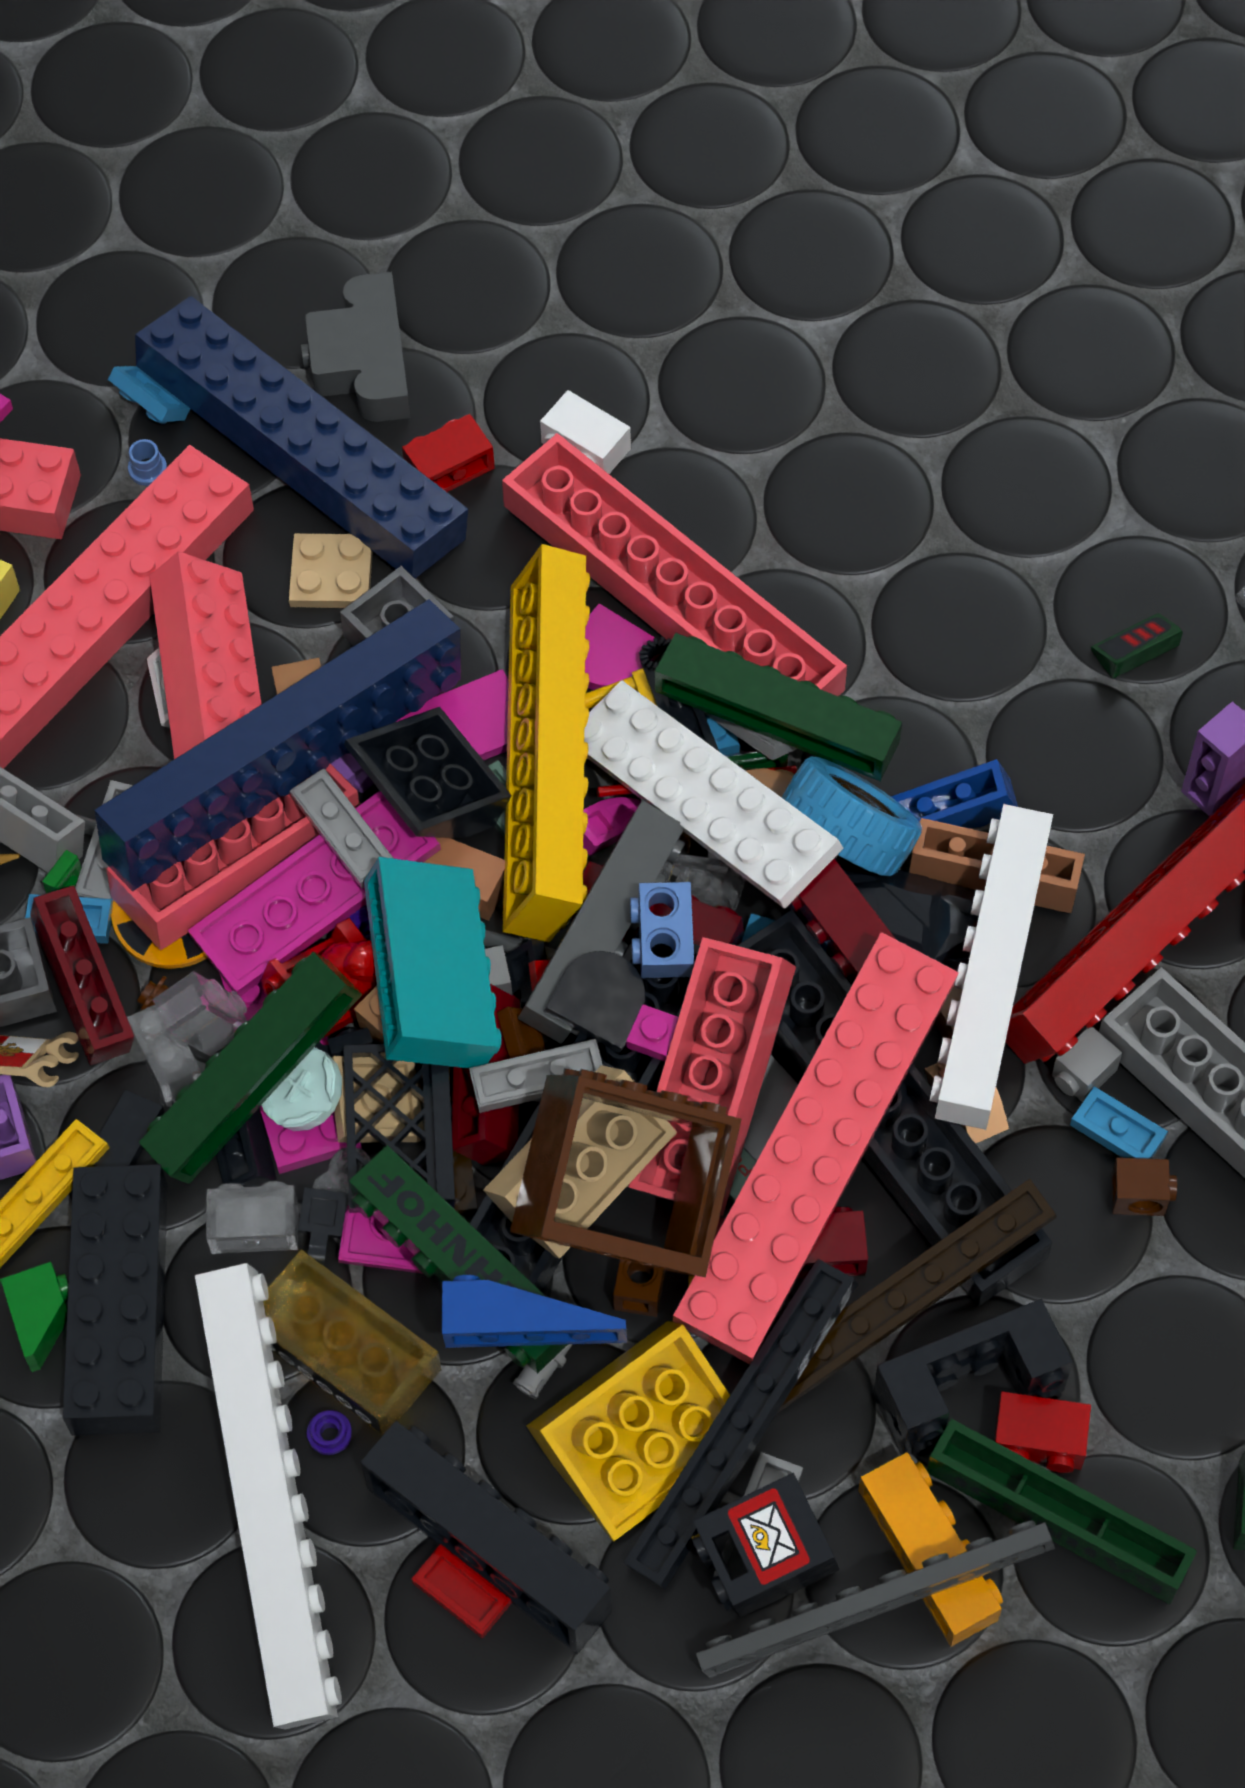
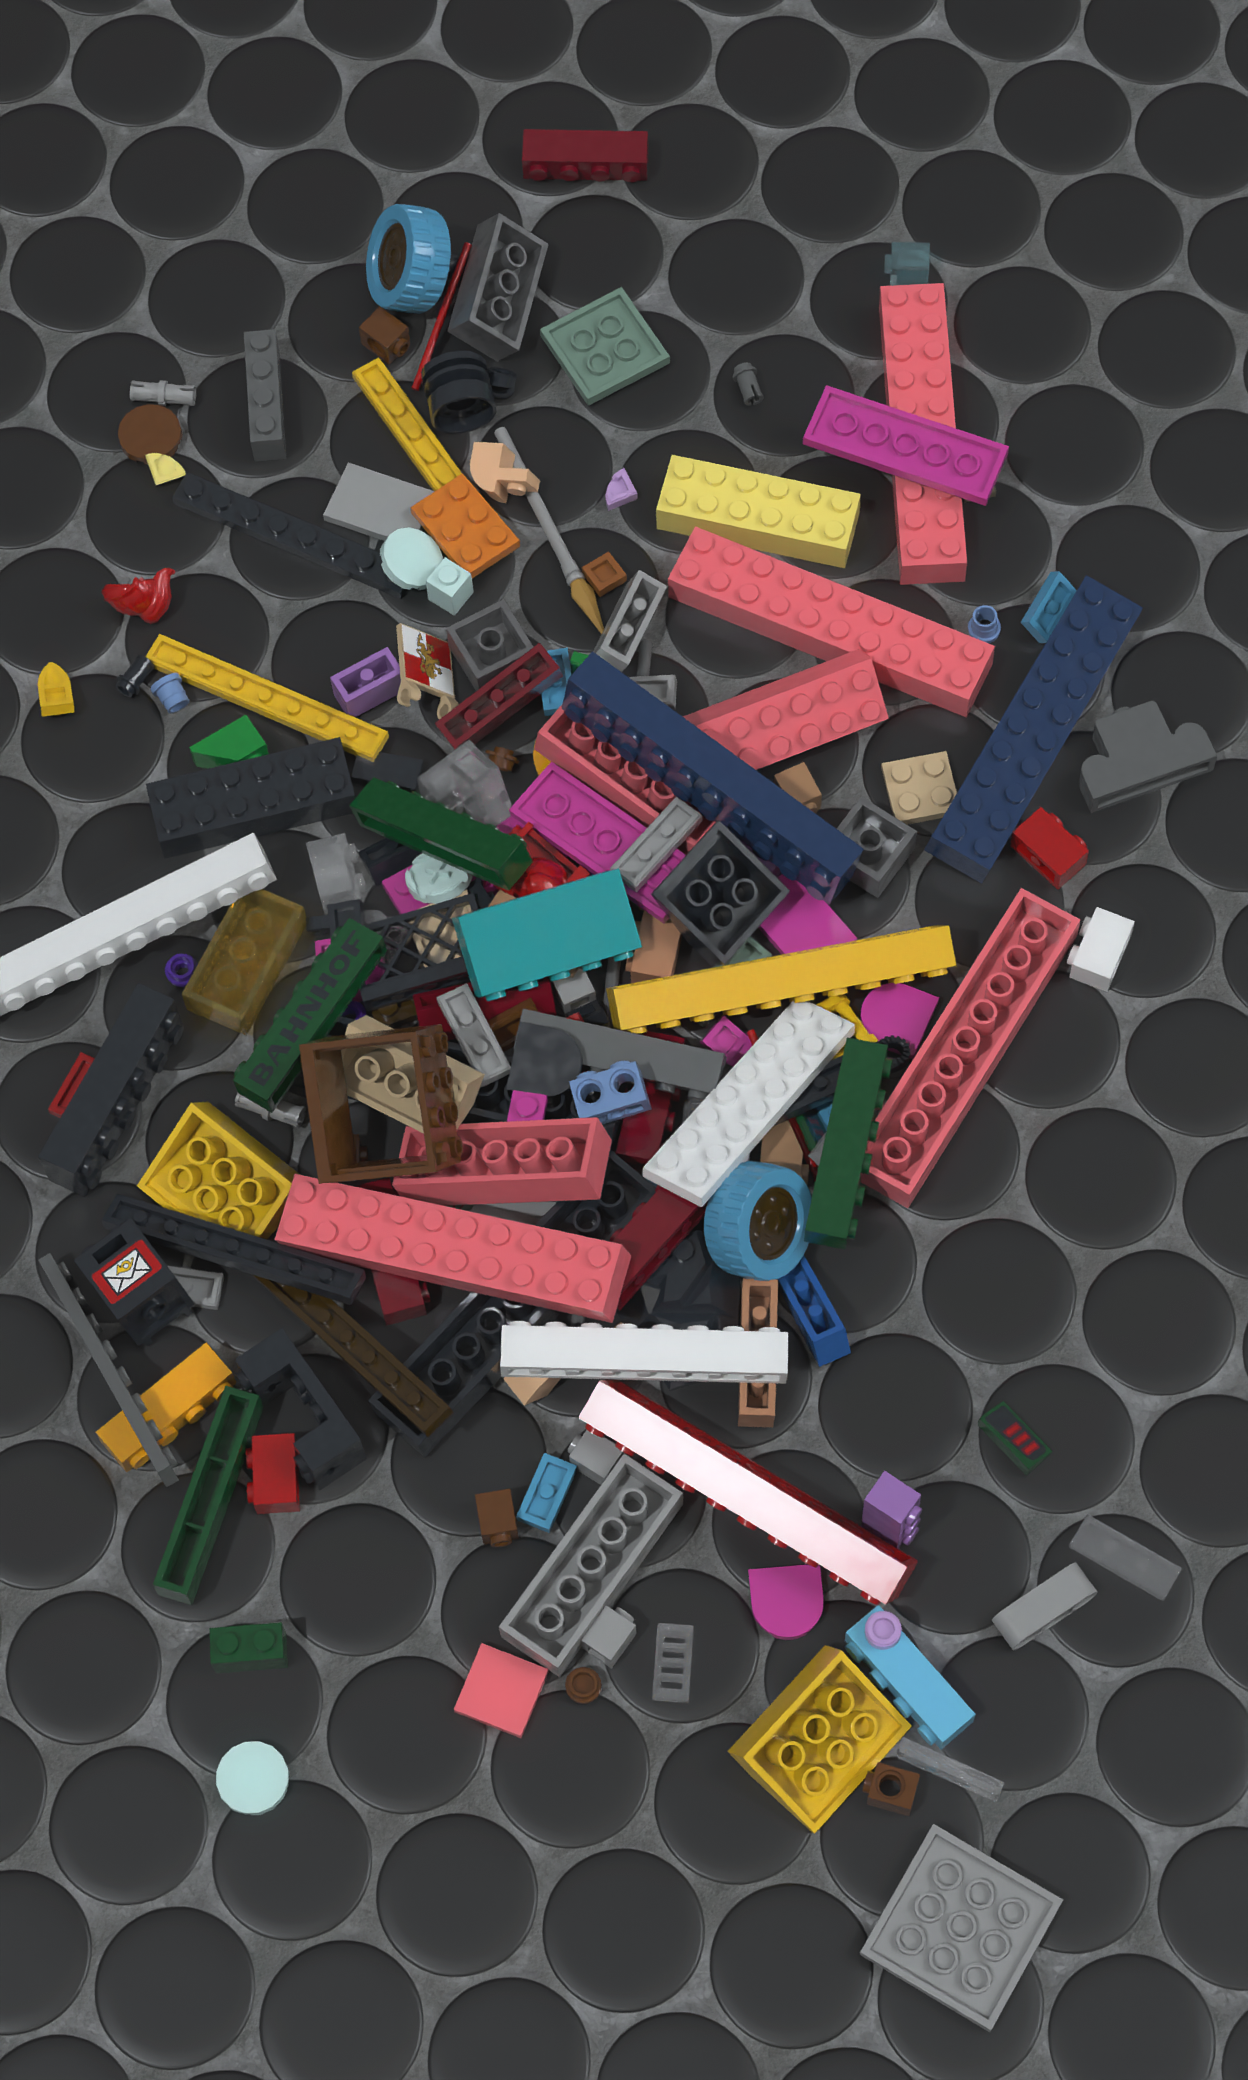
camera: 80 degrees right, 5 degrees up
(500, 1315) = (256, 1044): blue slope -> none

